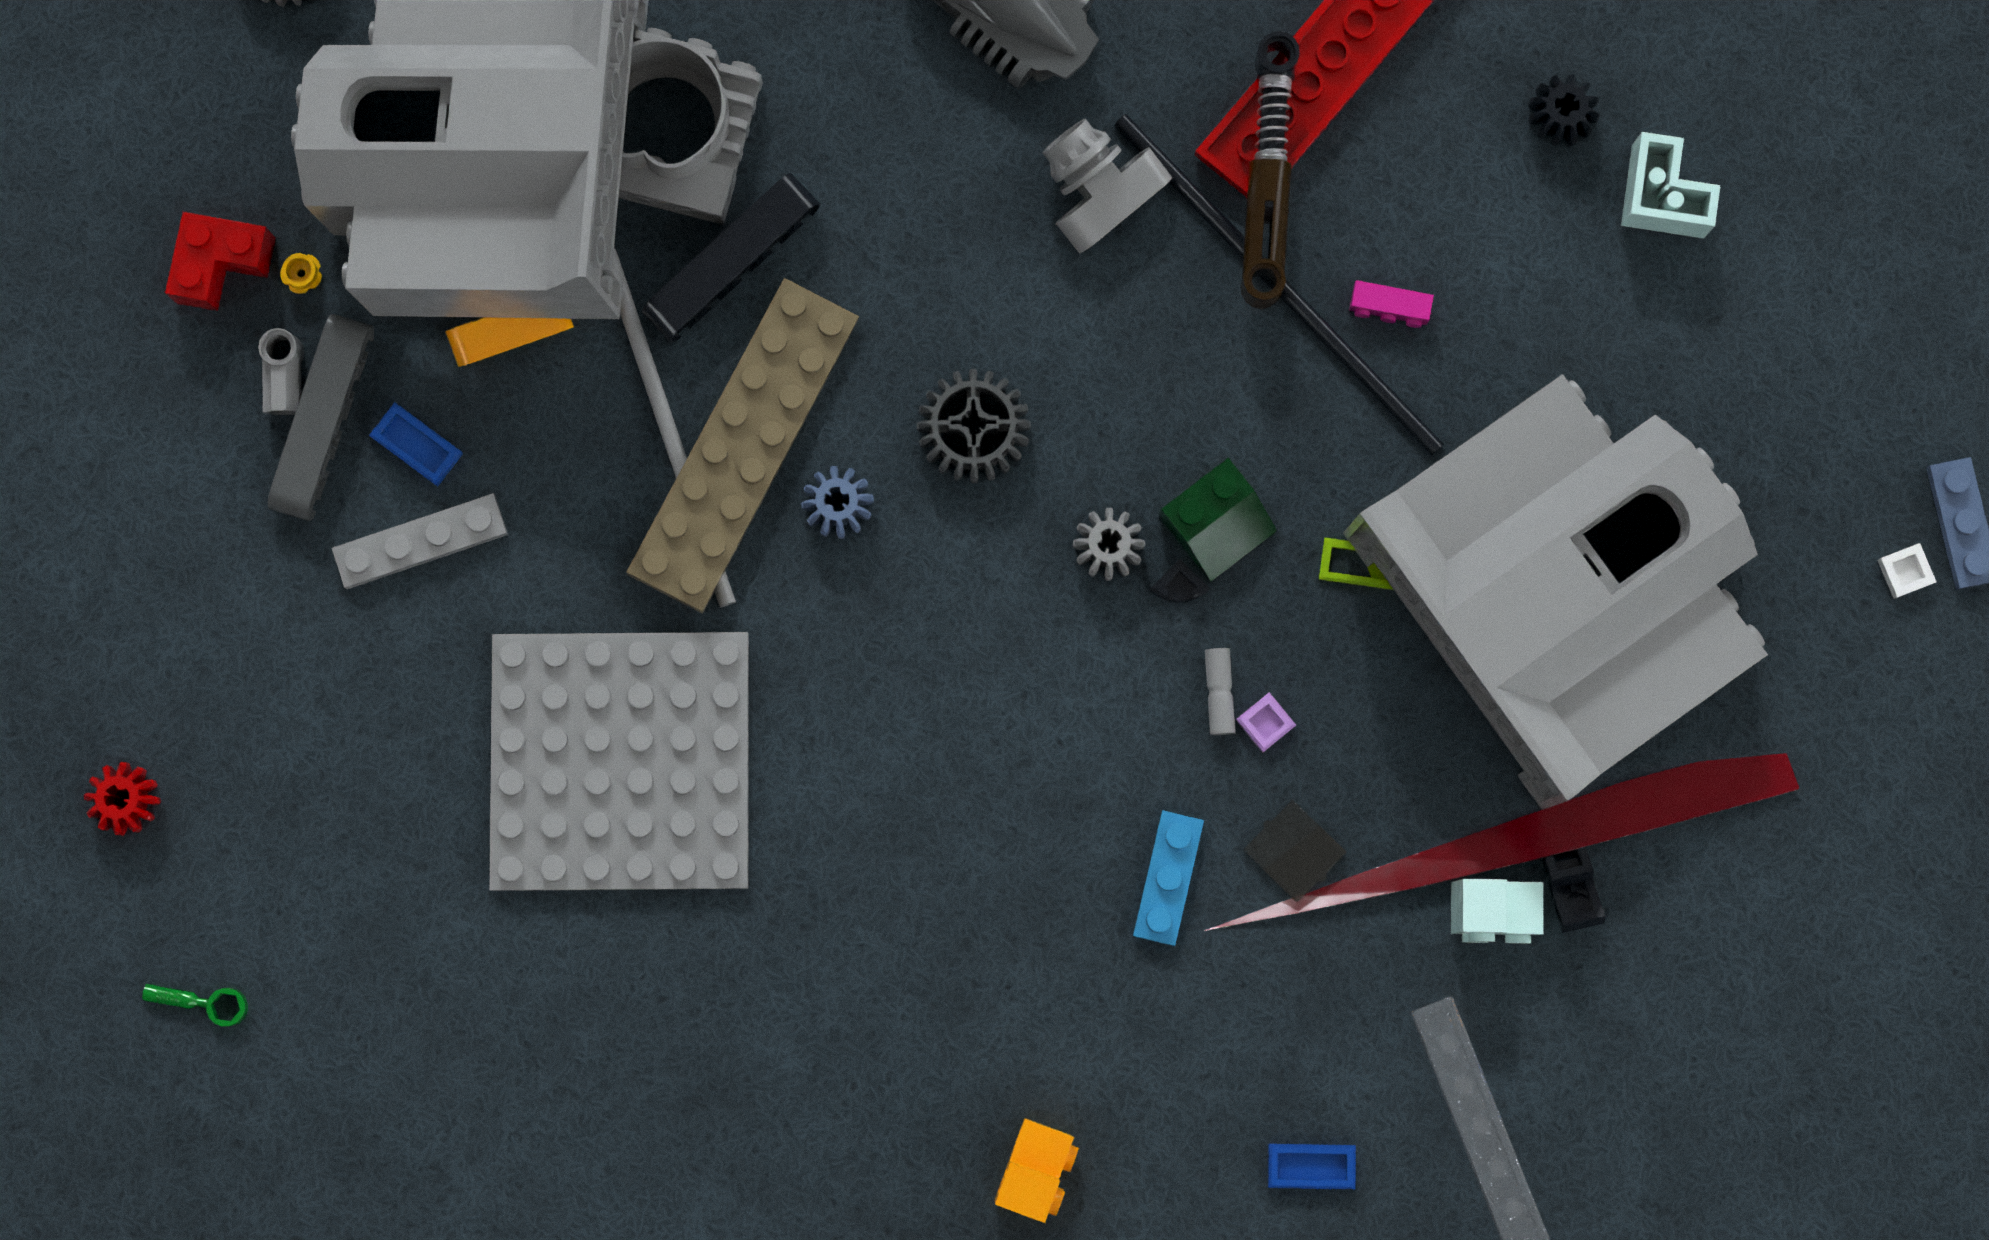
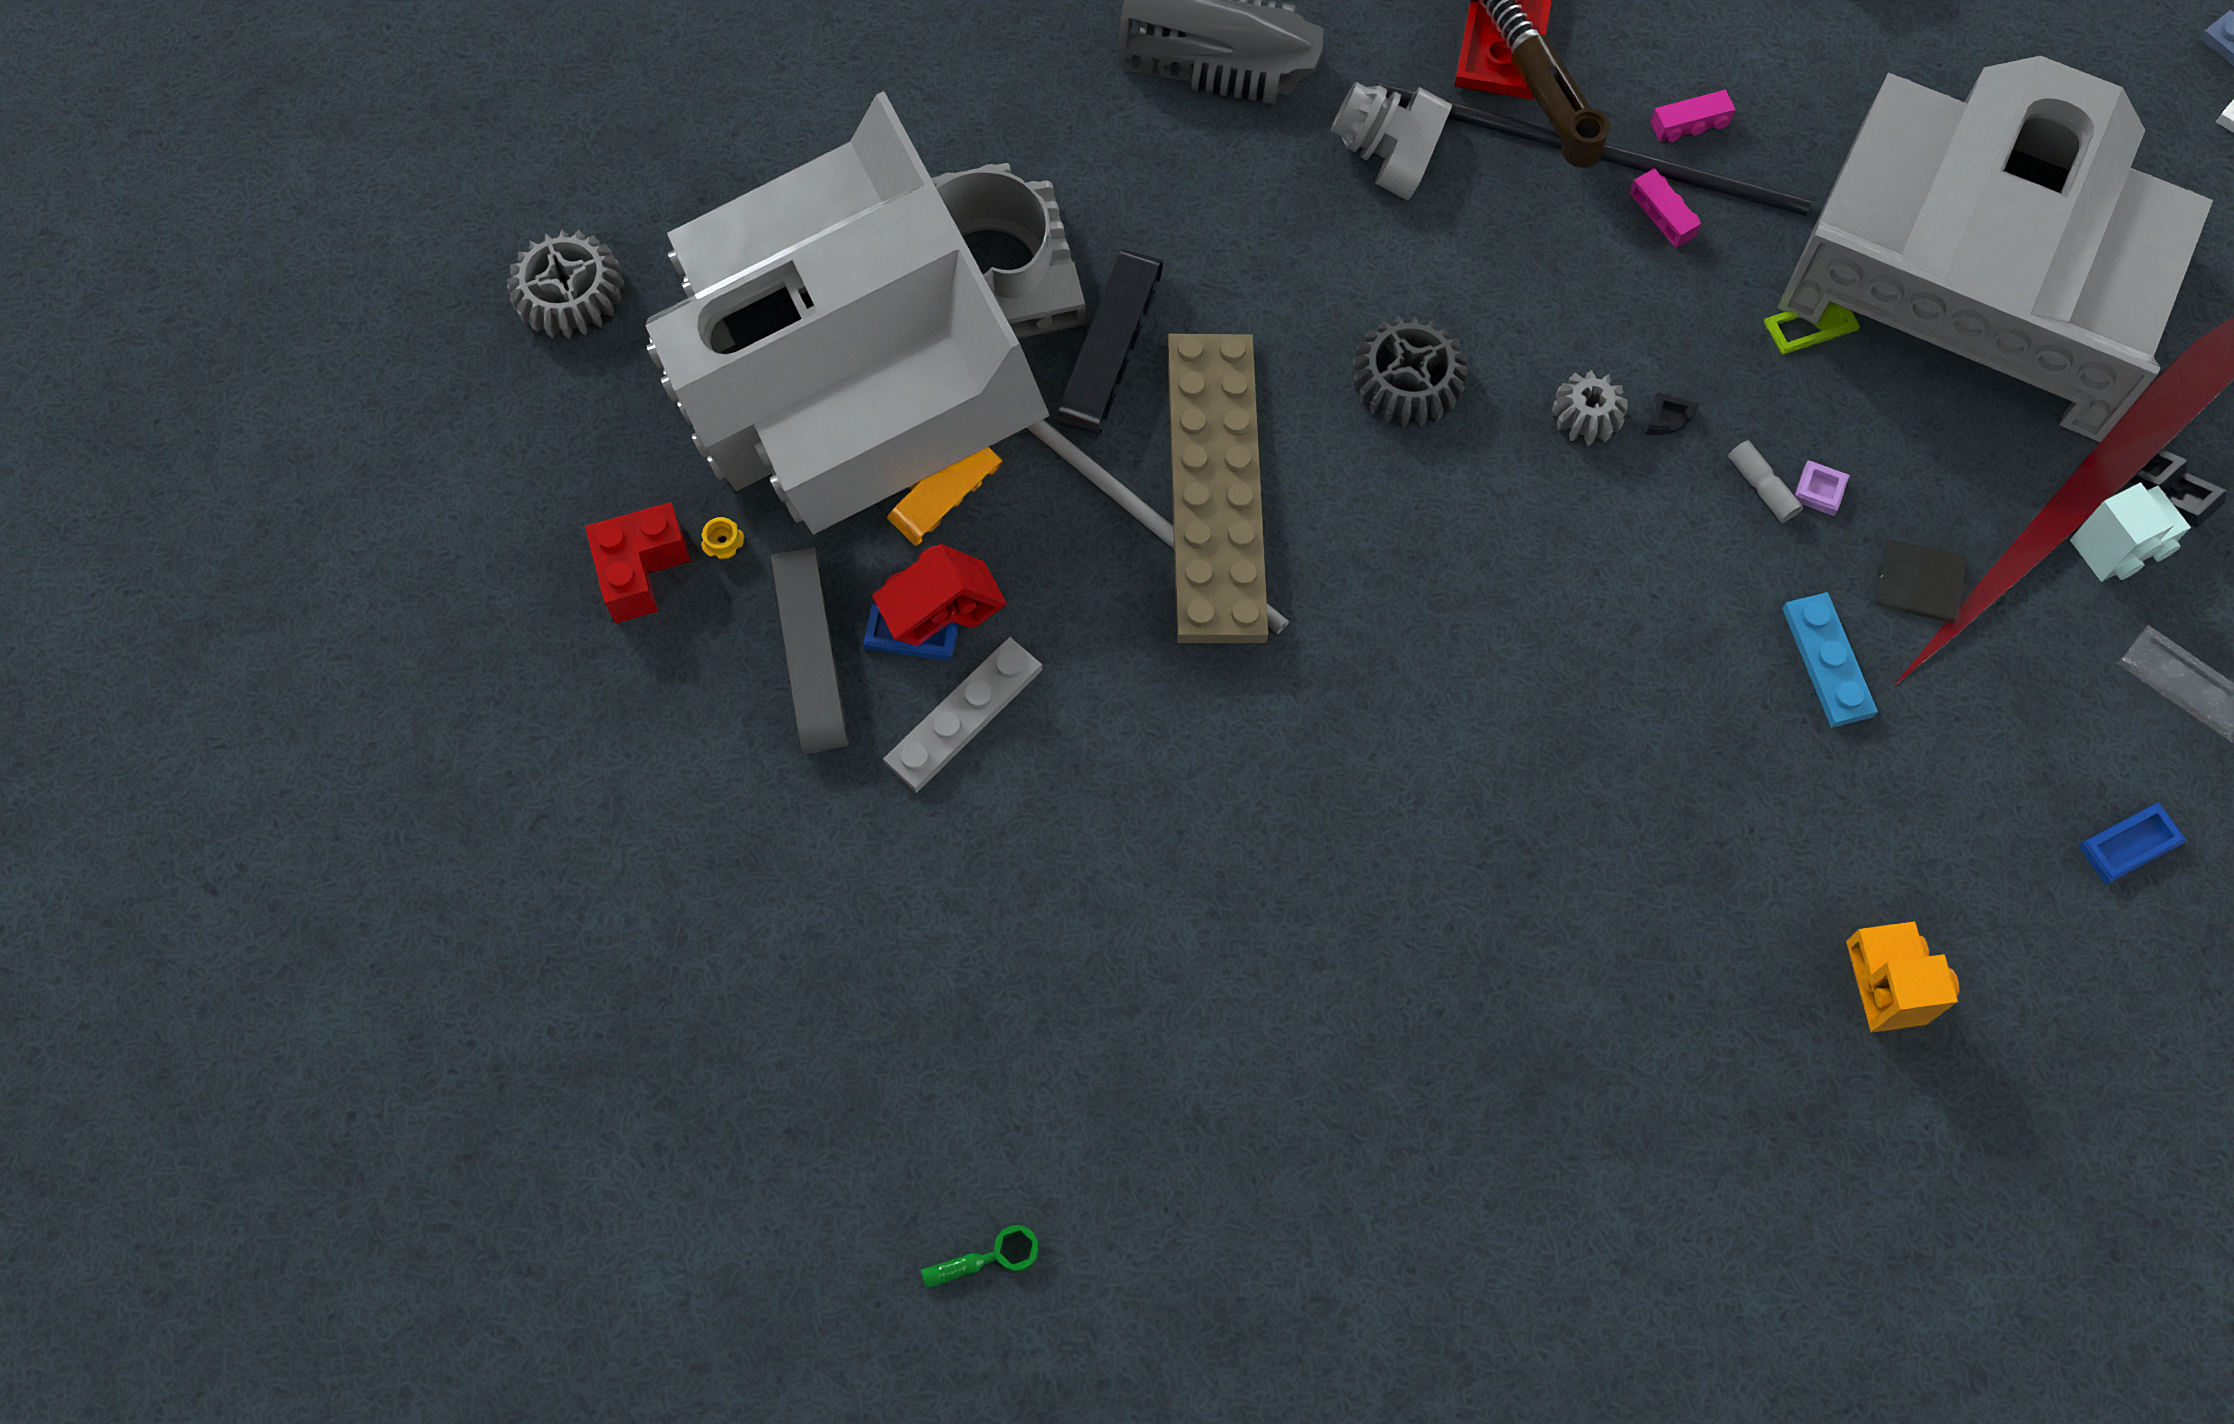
camera: 25 degrees left, 15 degrees down
(126, 781) = (798, 1111): red gear -> none
(281, 377) = (751, 629): light grey piece -> none
(446, 430) = (937, 591): none -> red brick
(619, 761) = (1267, 816): light grey plate -> none
(848, 492) = (1328, 501): sand blue gear -> none
(1218, 519) = (1668, 342): dark green slope -> none
(1305, 383) = (1665, 208): none -> dark pink piece

